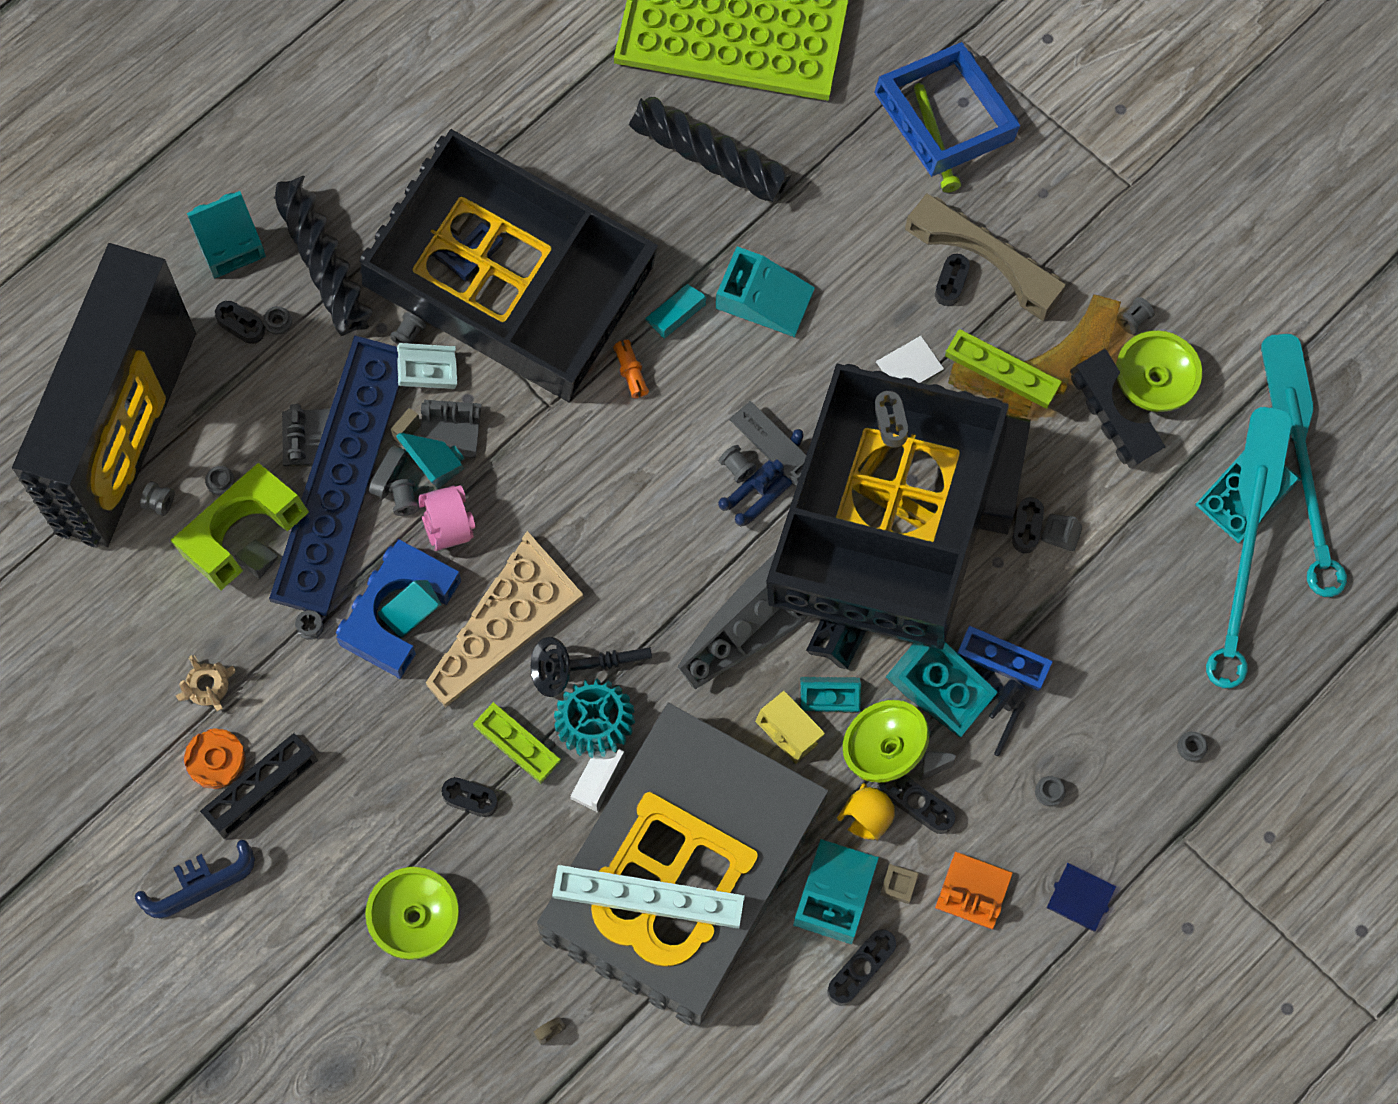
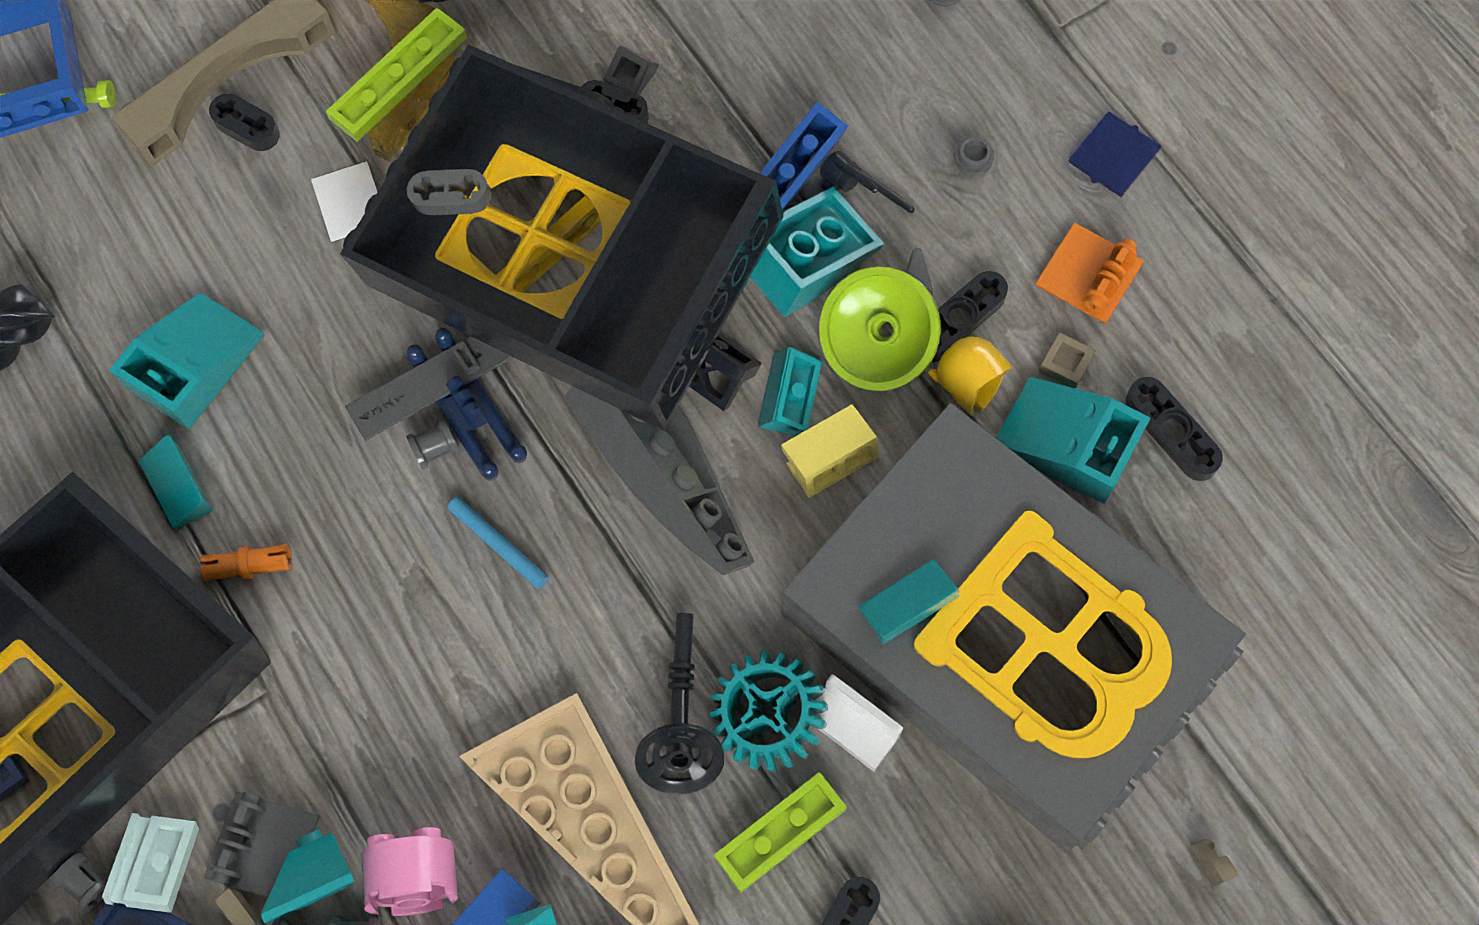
camera: 75 degrees left, 0 degrees up
(648, 896) = (1074, 671): light aqua plate -> none
(674, 782) = (909, 601): none -> teal slope
(678, 523) = (498, 542): none -> dark azure bar

